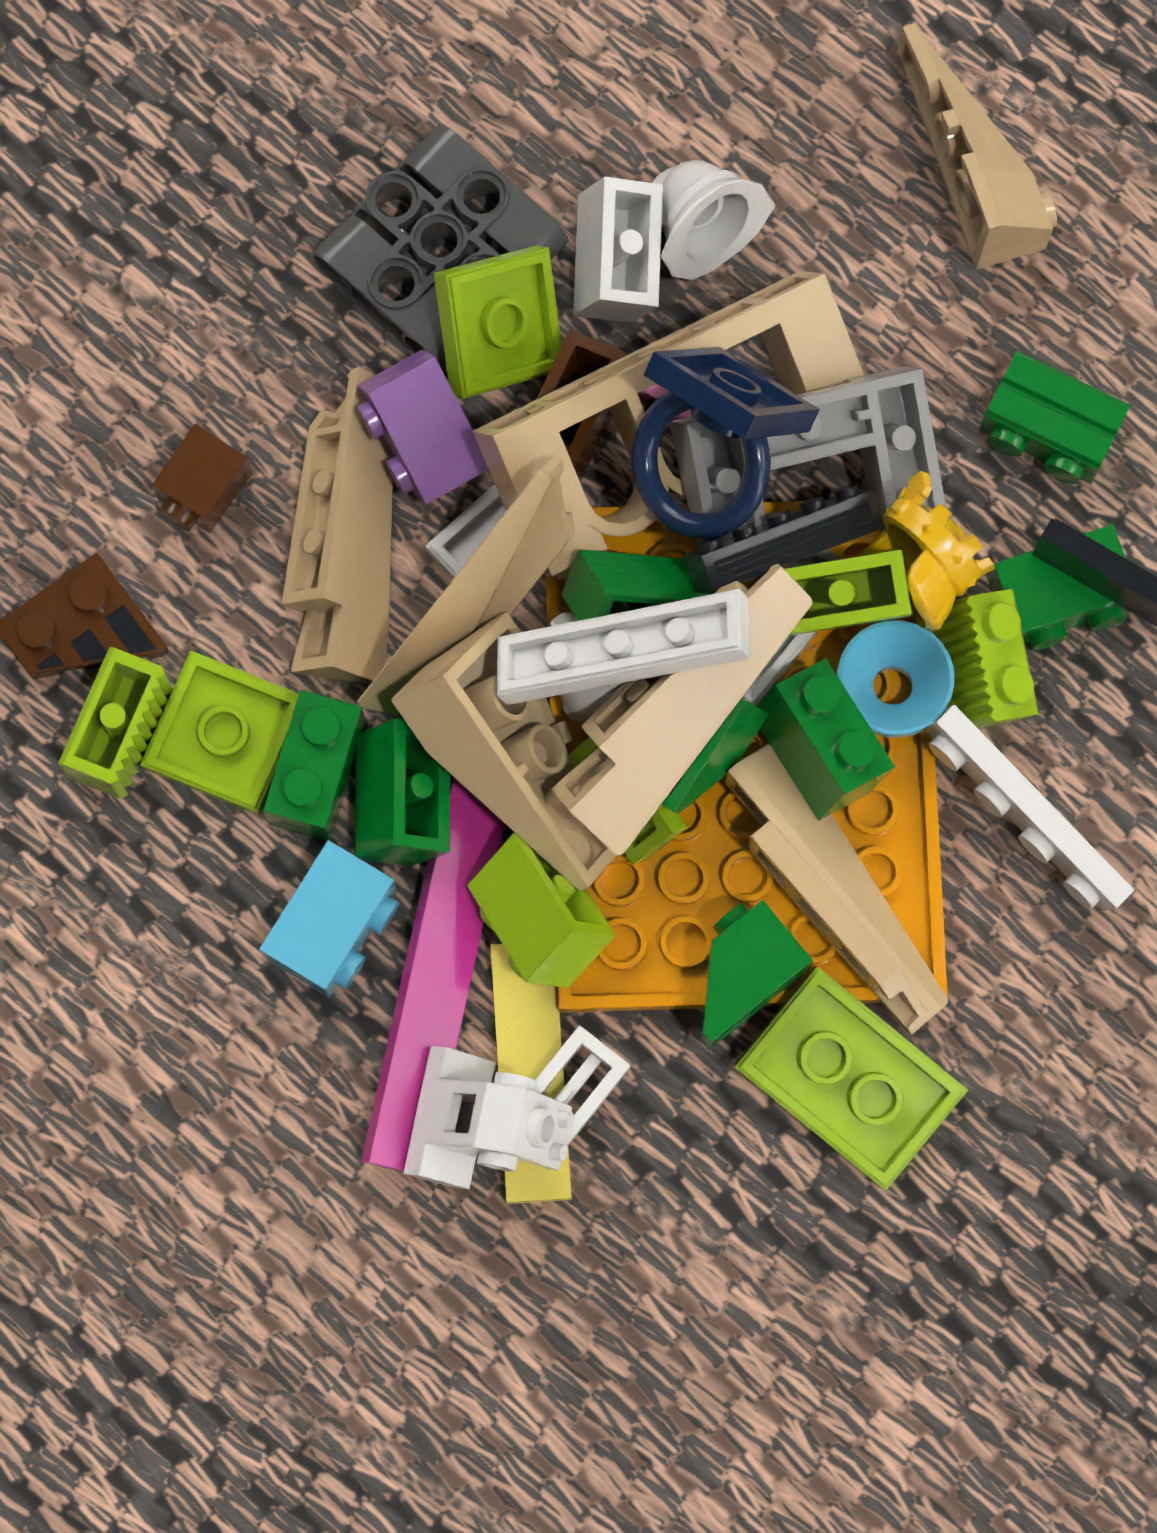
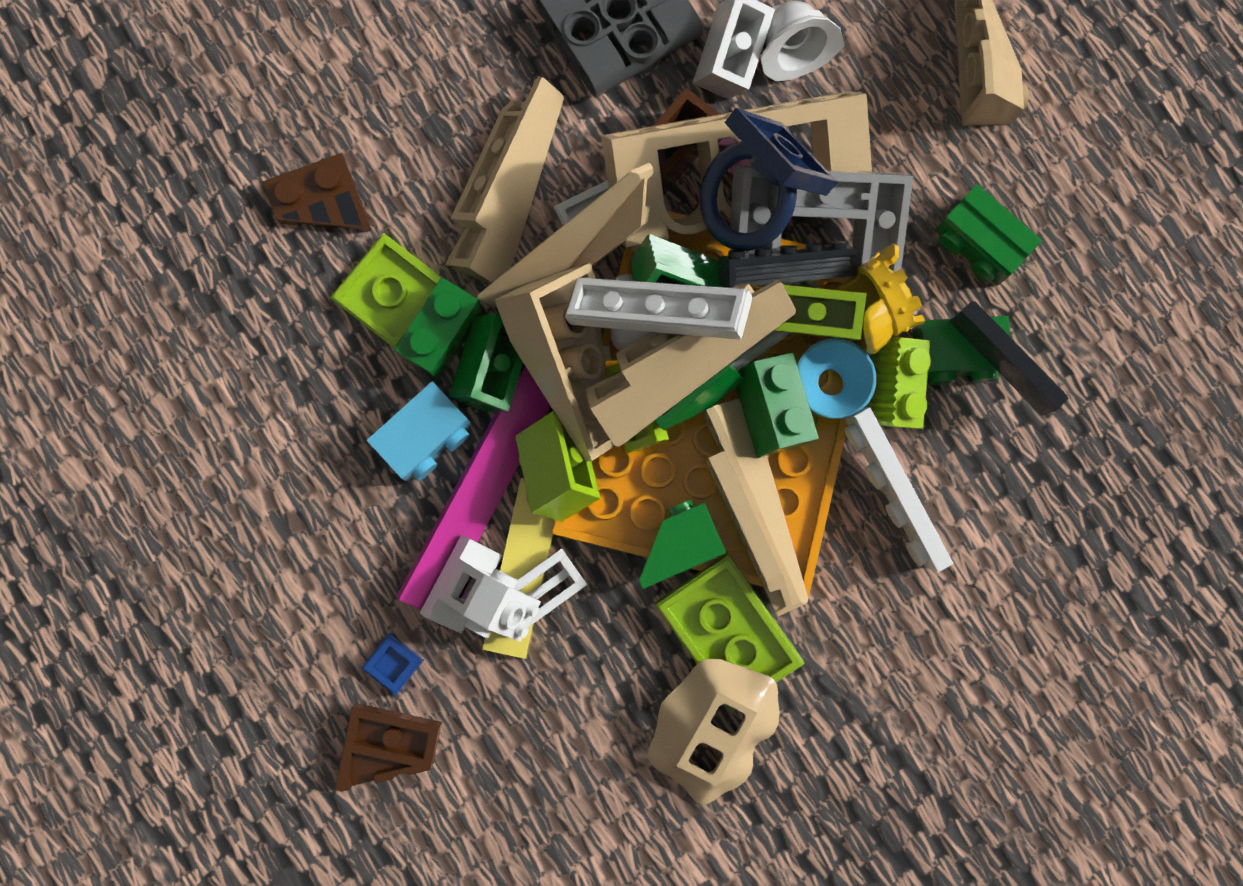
camera: 15 degrees right, 5 degrees up
(116, 723) = (319, 265): lime brick -> none
(201, 480) = (420, 124): reddish brown brick -> none
(383, 1261) = (392, 664): none -> blue tile
(408, 1377) = (385, 745): none -> reddish brown wing
(422, 427) = (572, 127): medium lavender brick -> none
(498, 320) = (640, 69): lime tile -> none
(825, 1213) = (687, 718): none -> tan piece

